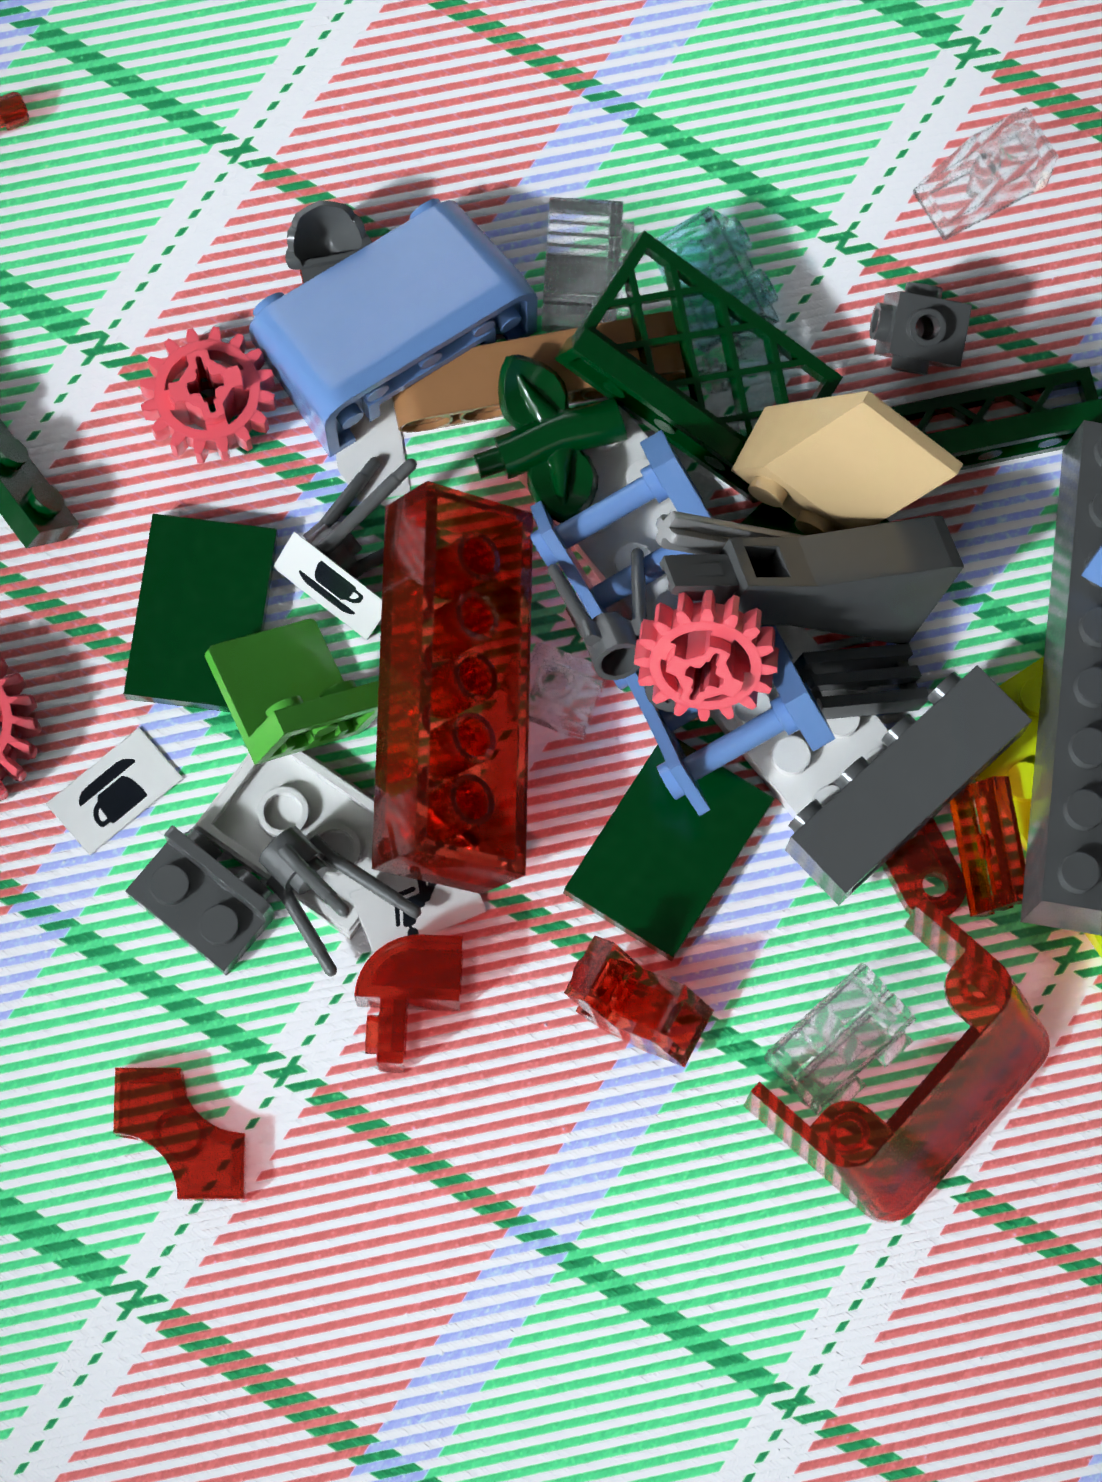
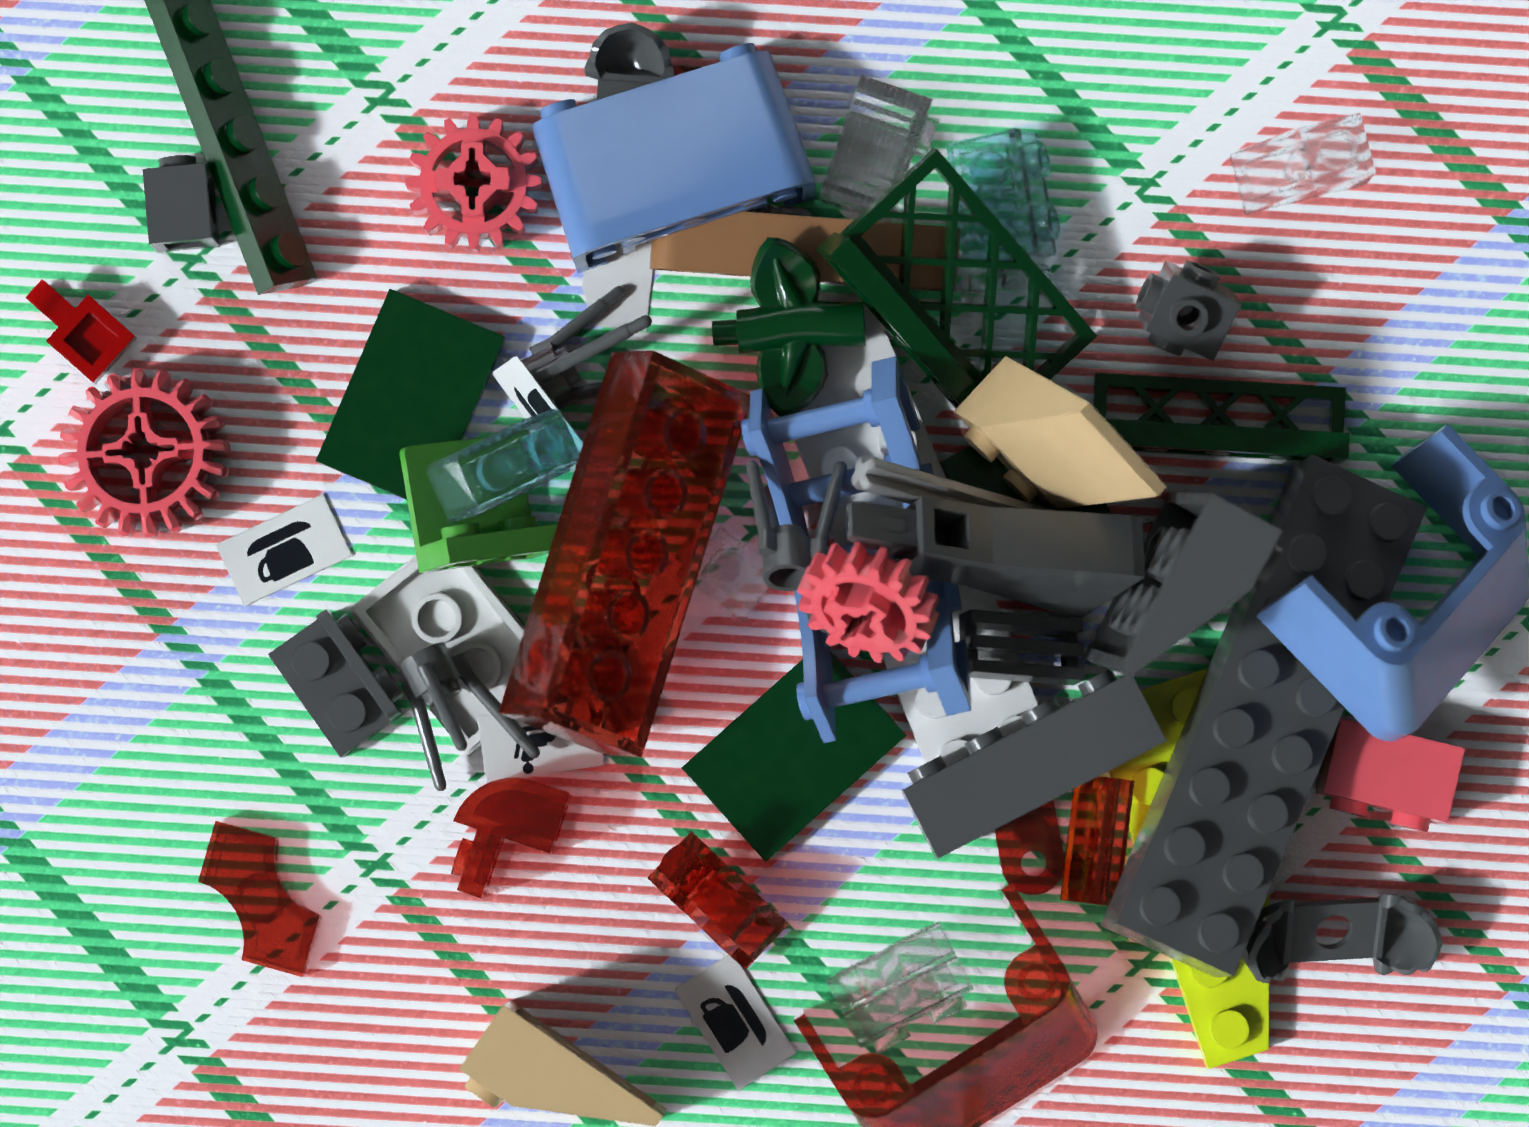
camera: 20 degrees right, 10 degrees up
(309, 639) = (503, 465): none -> clear light blue brick
(515, 1218) = (543, 1071): none -> tan slope
(687, 1125) = (735, 1021): none -> white sticker
(1005, 537) = (1196, 565): none -> dark grey slope

